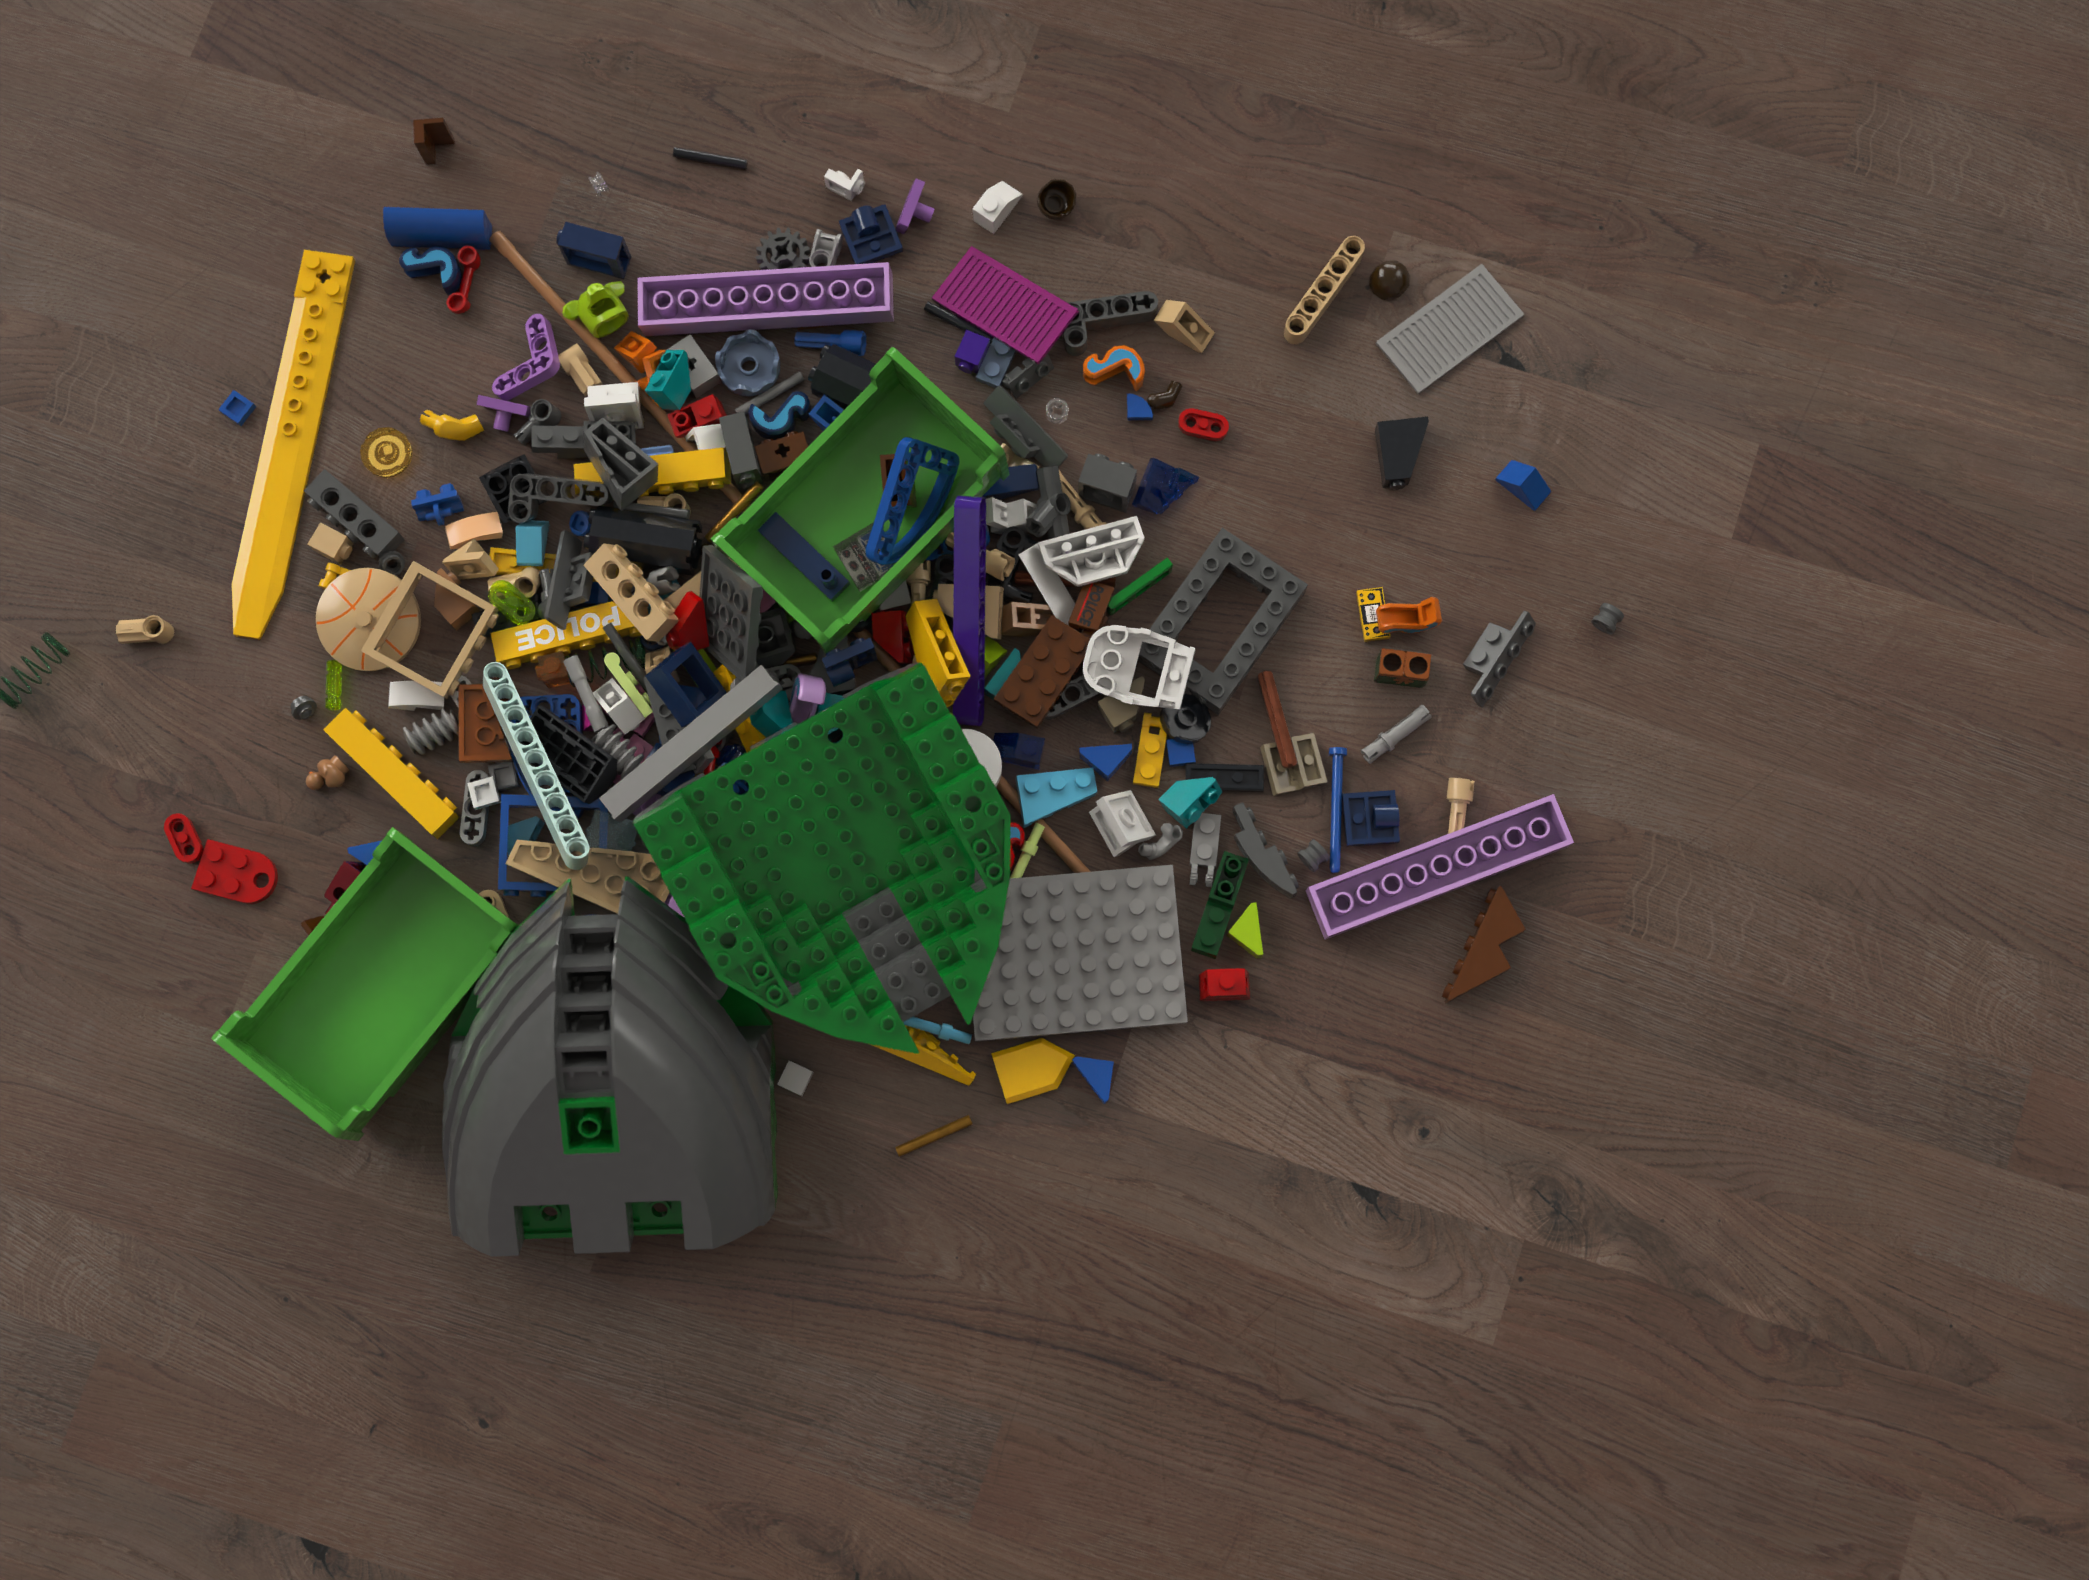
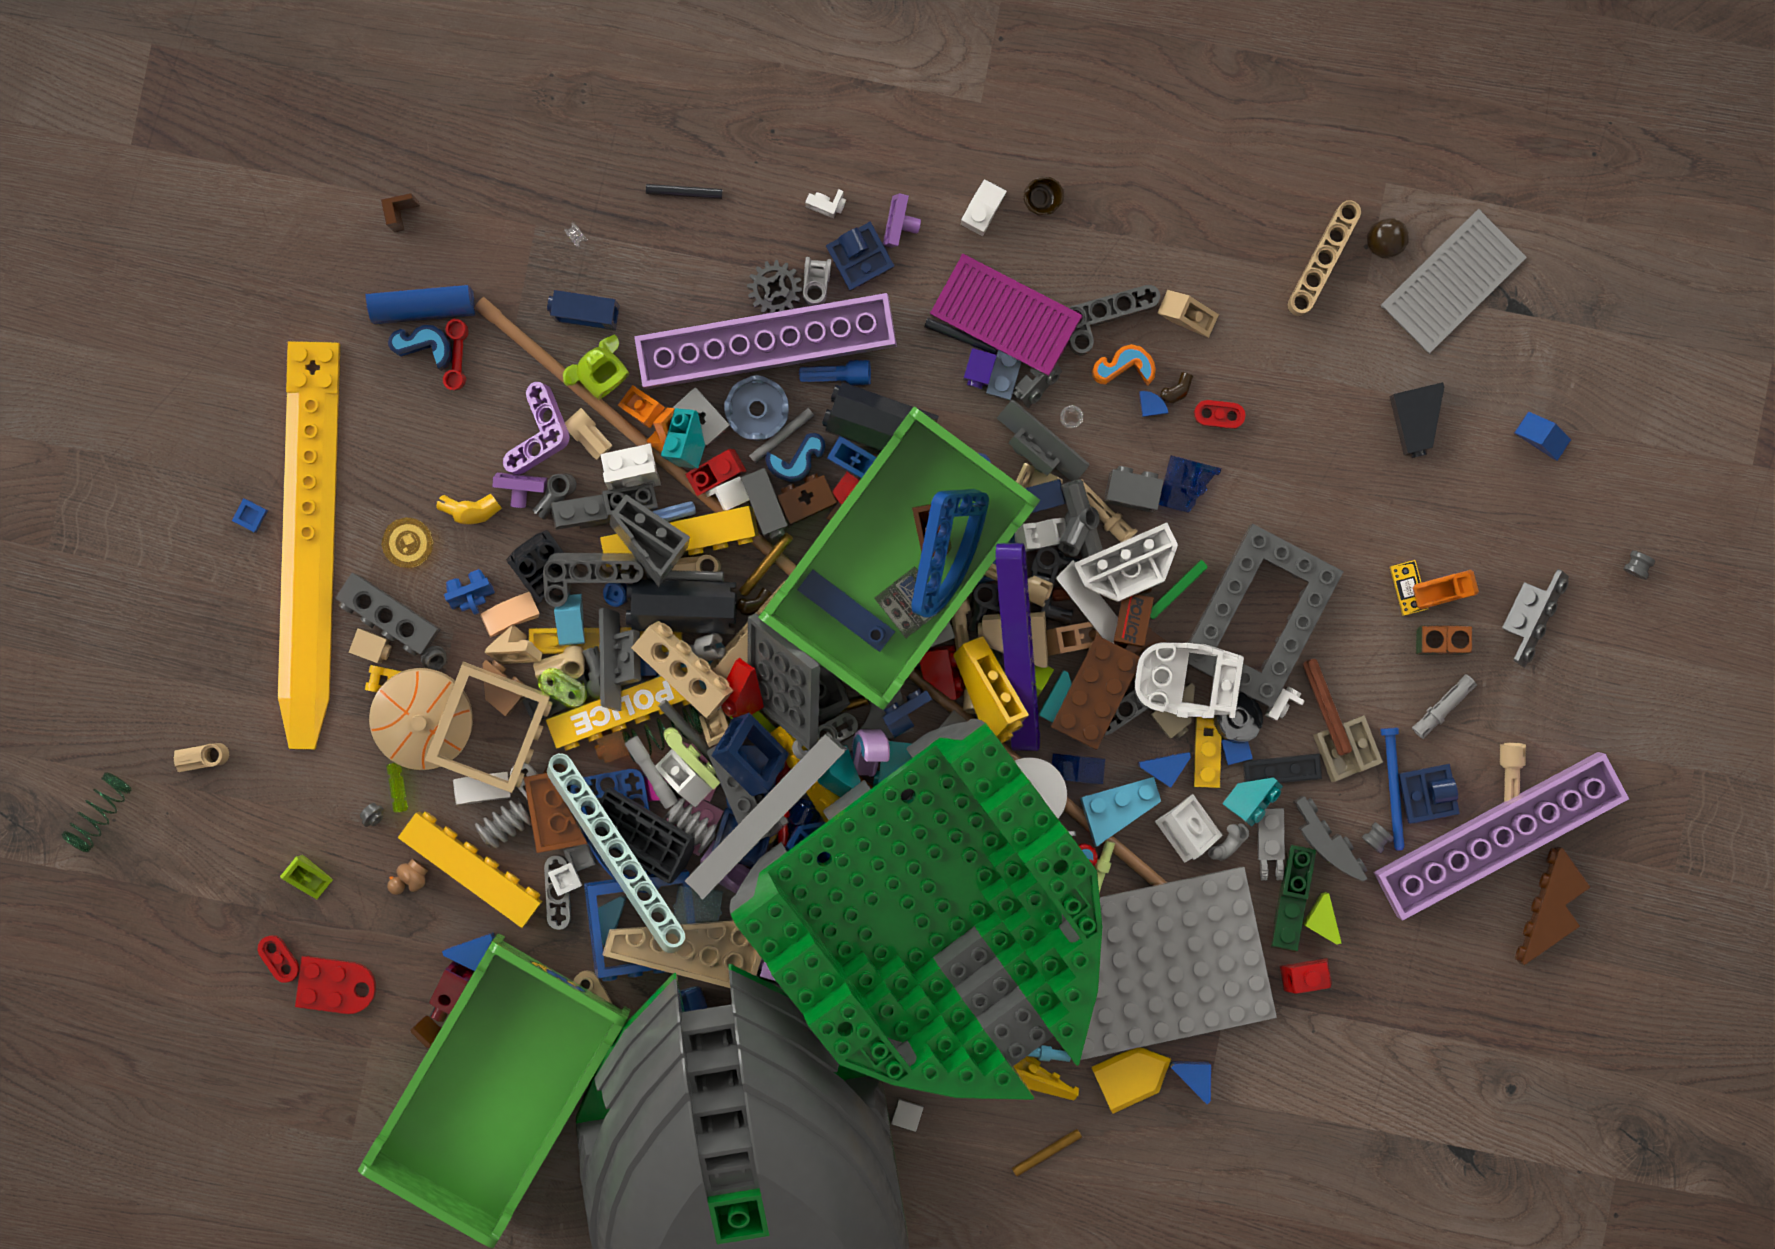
camera: 10 degrees left, 10 degrees up
(225, 759) = (306, 876): none -> lime slope
(1229, 712) = (1280, 706): none -> white bracket

